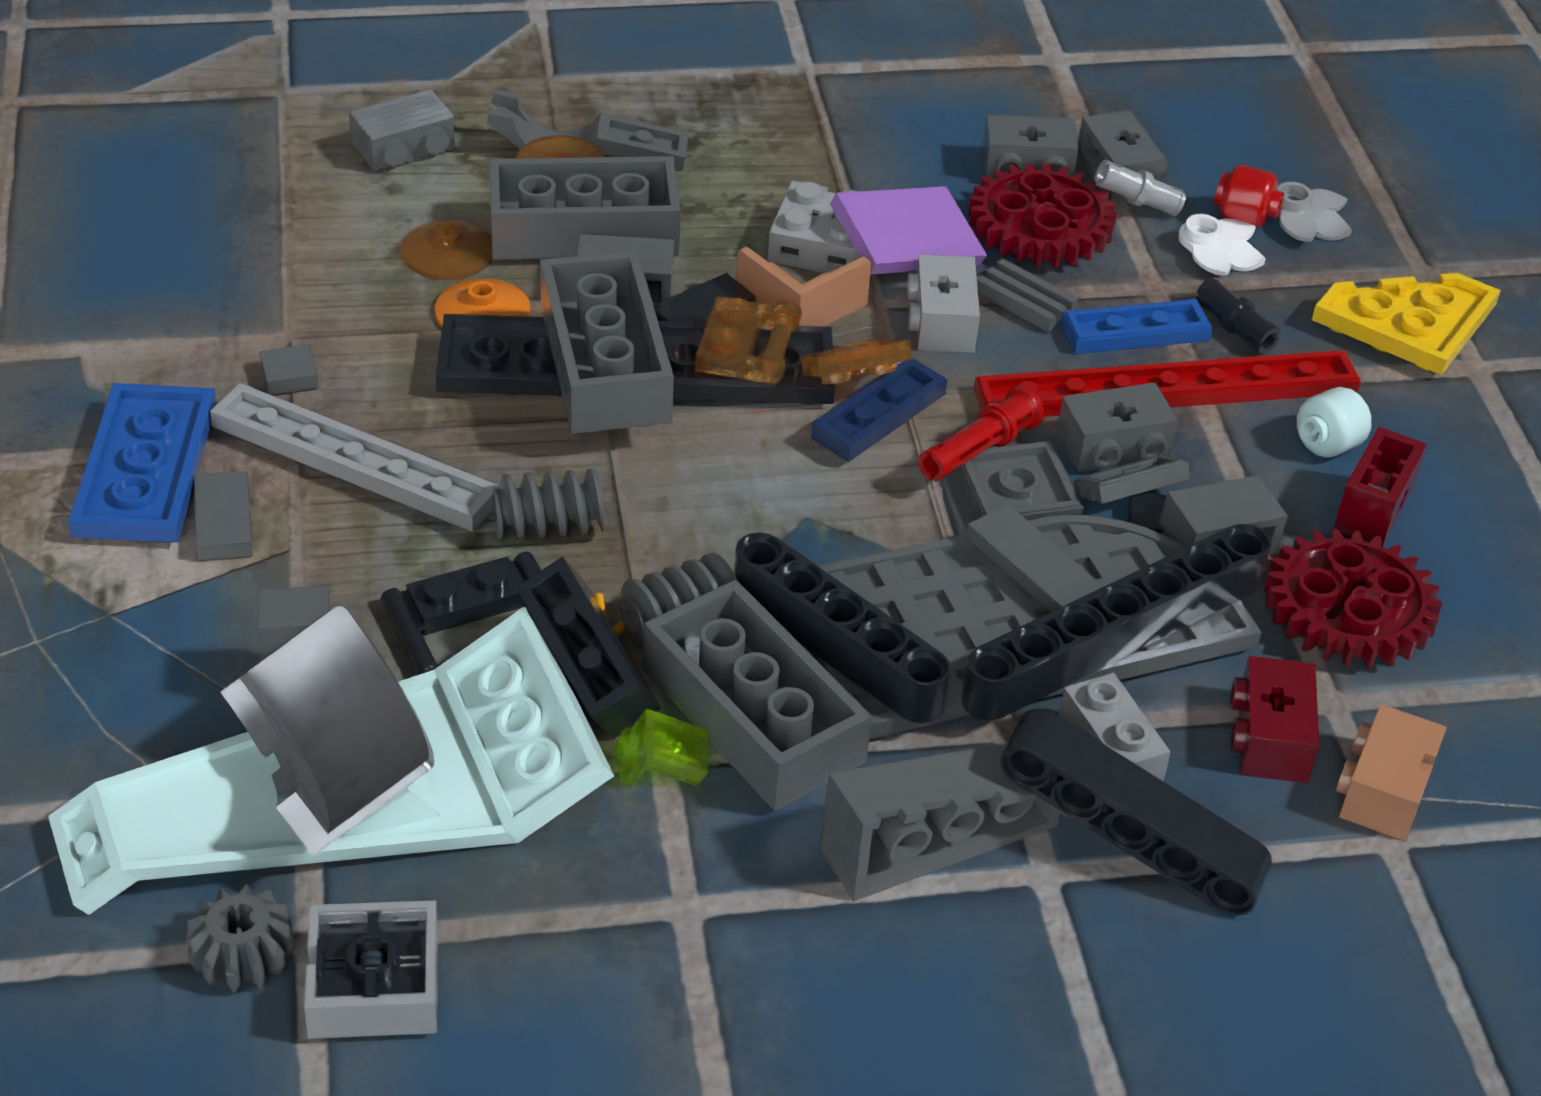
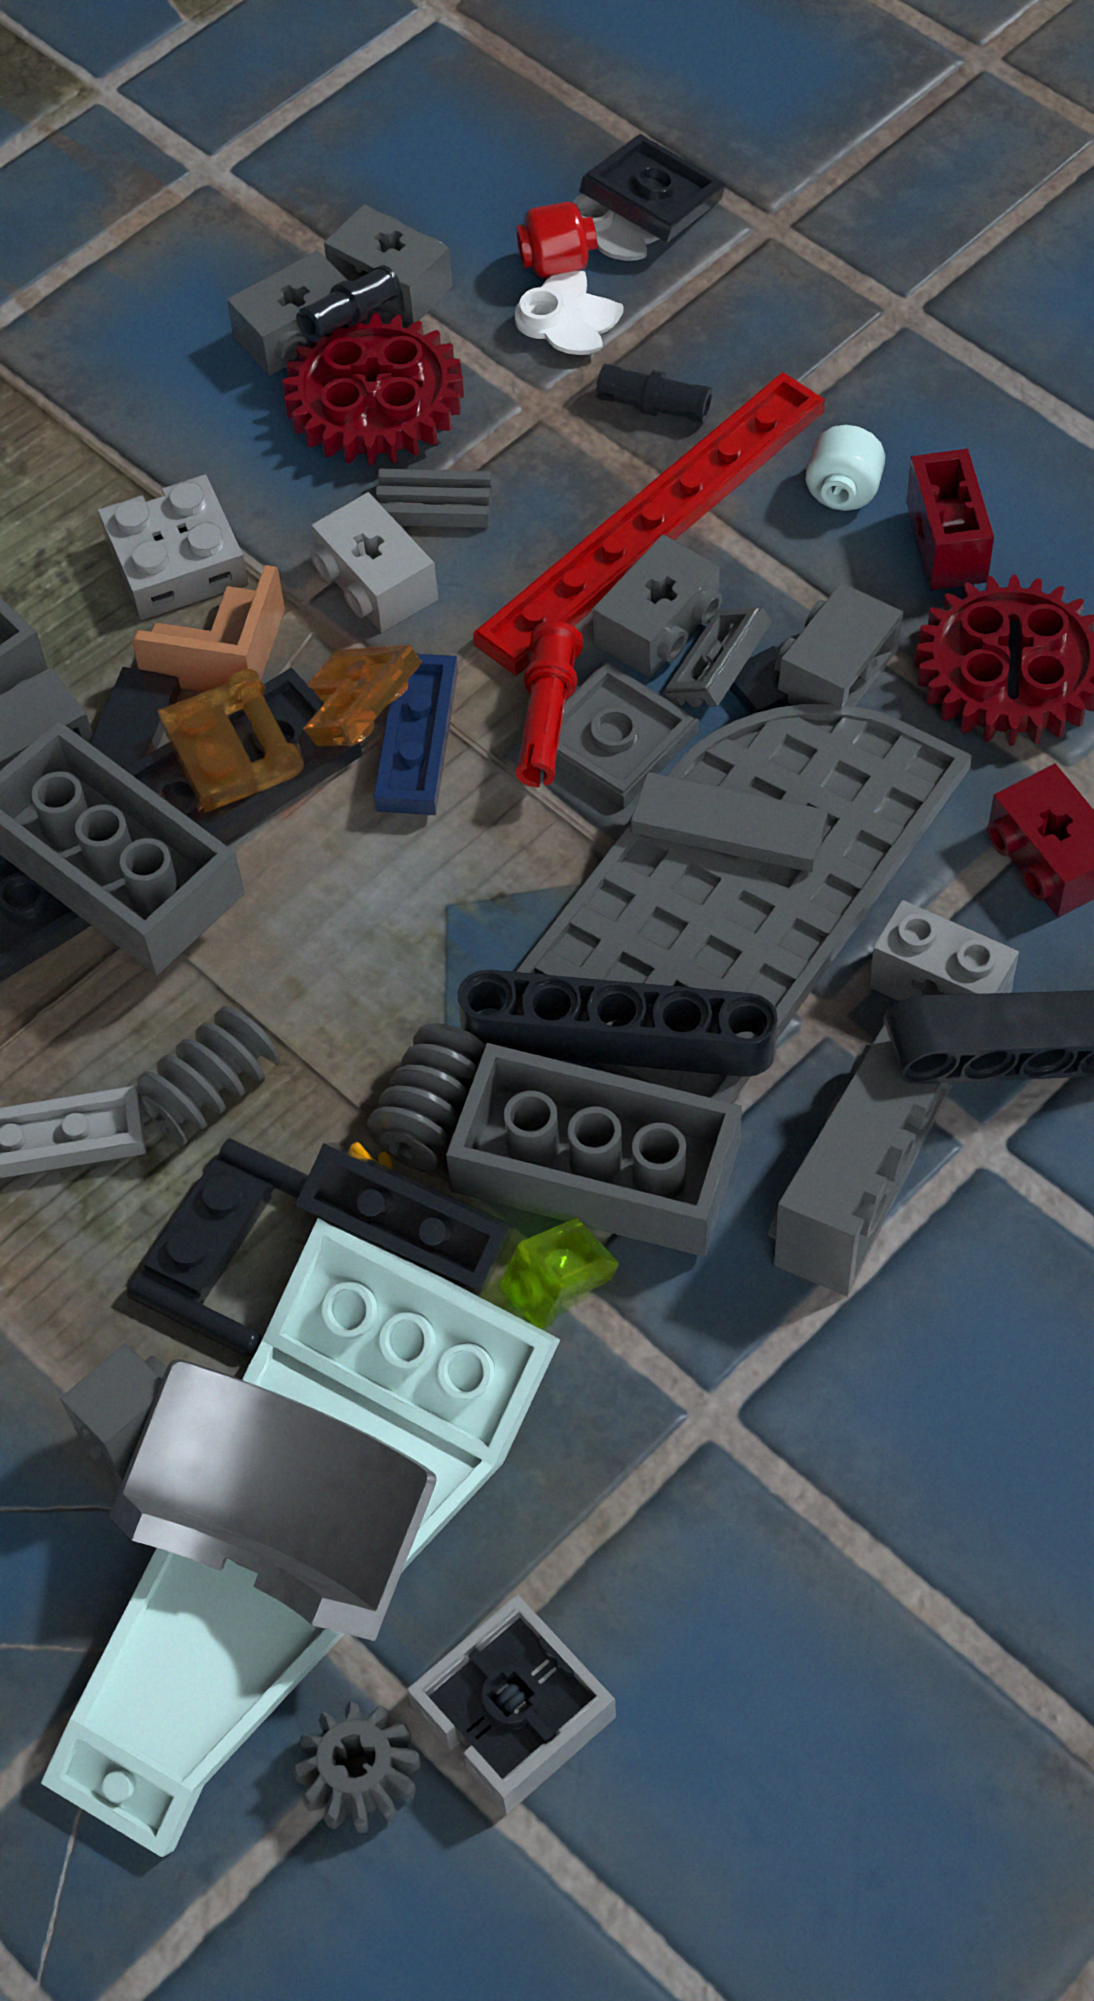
camera: 30 degrees left, 15 degrees up
(903, 223) = (268, 497): medium lavender tile -> none
(1062, 152) = (348, 303): none -> black pin
(1114, 621) = (880, 758): black beam -> none
(1136, 326) = (566, 467): blue tile -> none
(1140, 187) = (444, 295): light grey pin -> none
(1349, 203) = (652, 187): none -> black tile
(1408, 318) = (809, 291): yellow plate -> none

